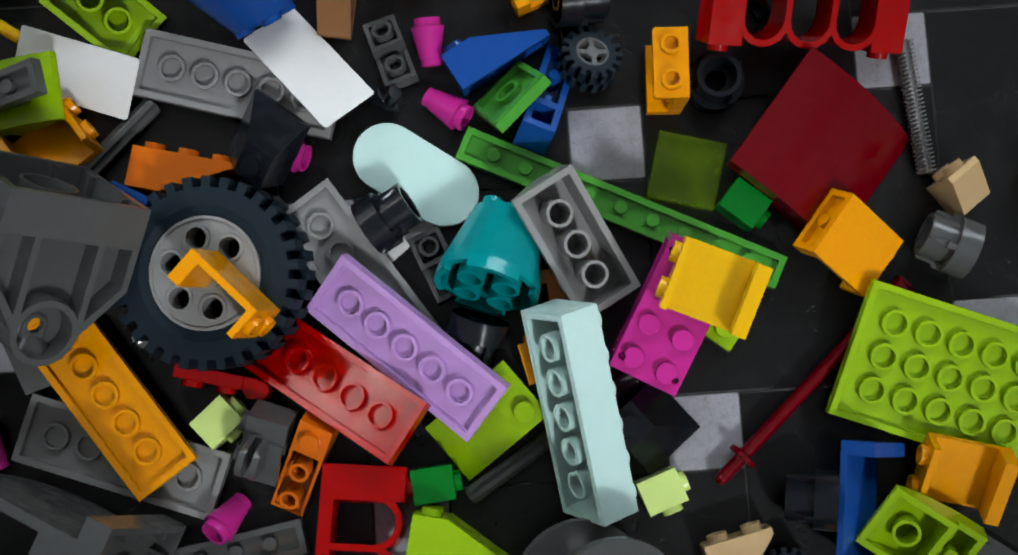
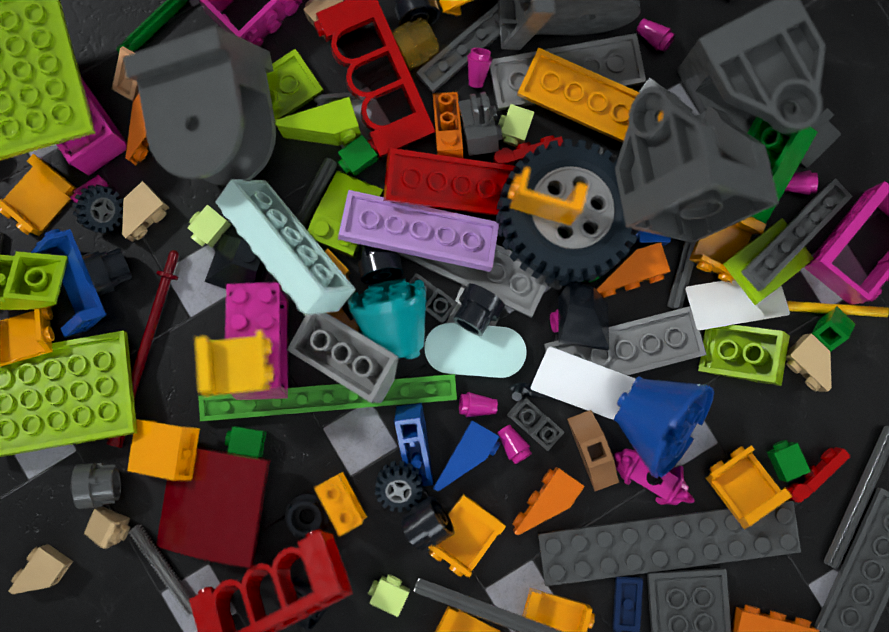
camera: 145 degrees right, 0 degrees up
(511, 95) = (437, 433): bright green tile -> none
(686, 170) = (297, 446): clear neon green tile -> none

